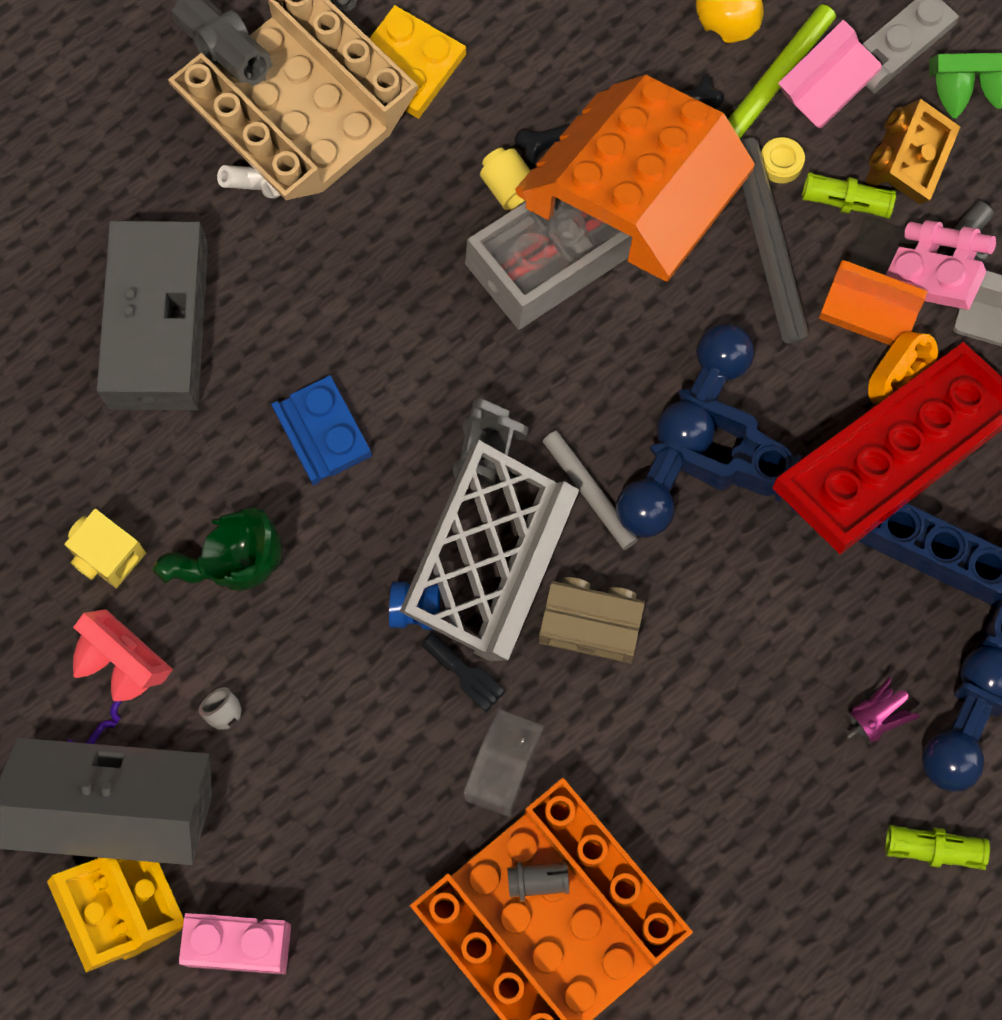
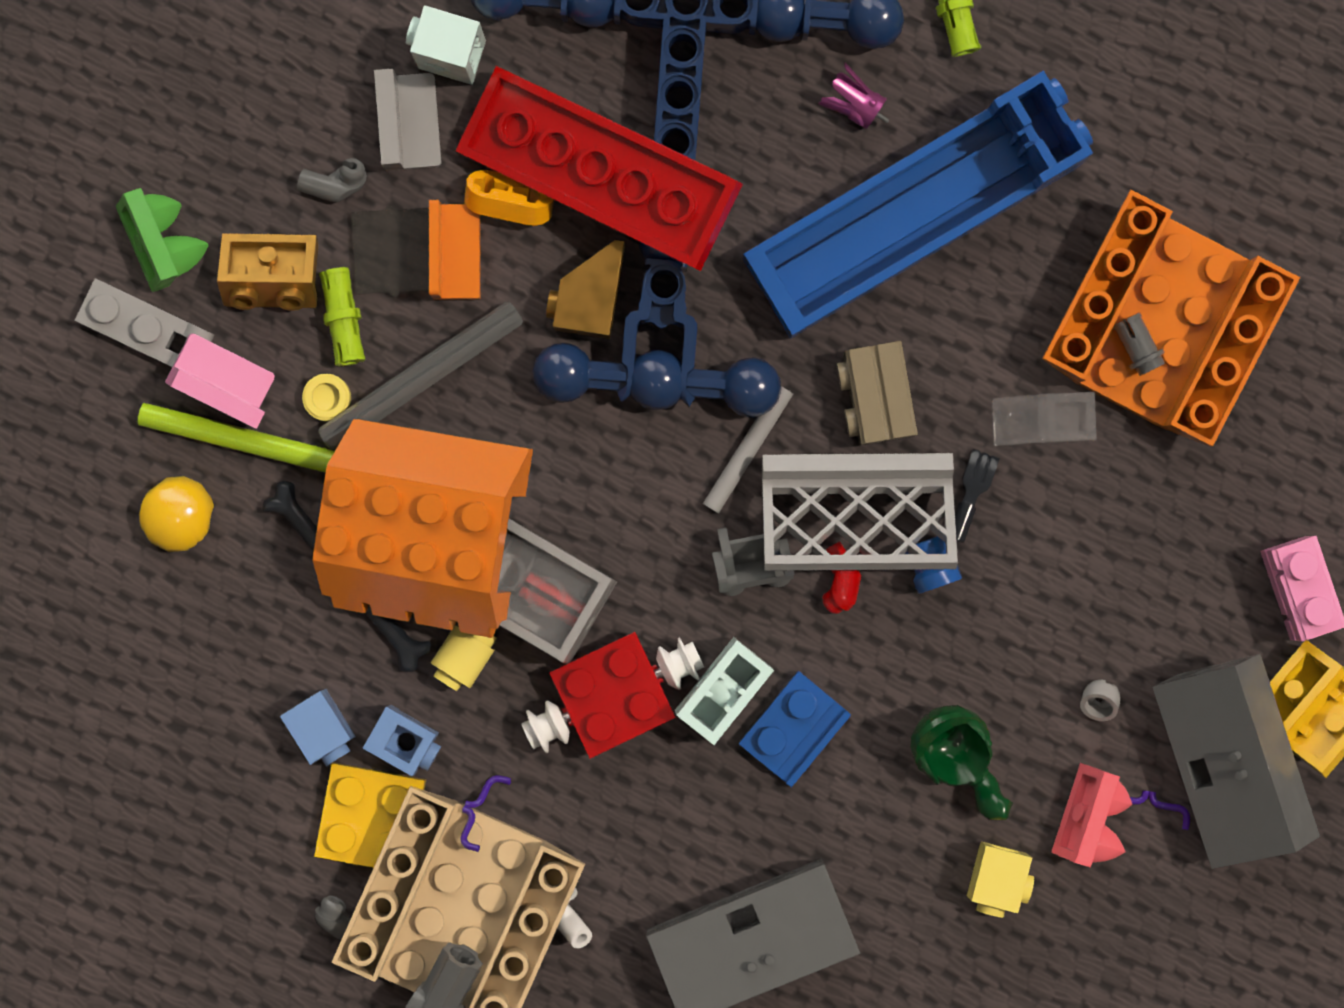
camera: 115 degrees left, 15 degrees up
(377, 133) = (473, 804): none -> dark purple piece
(382, 374) = (723, 691): none -> light aqua brick
(421, 285) = (612, 695): none -> red plate
(424, 518) = (844, 585): none -> red arm
(462, 92) = (385, 745): none -> medium blue brick
(500, 45) = (319, 728): none -> medium blue brick
(756, 732) = (920, 204): none -> blue brick
(787, 404) = (589, 295): none -> pearl gold slope
(946, 278) = (405, 200): bright pink plate -> none

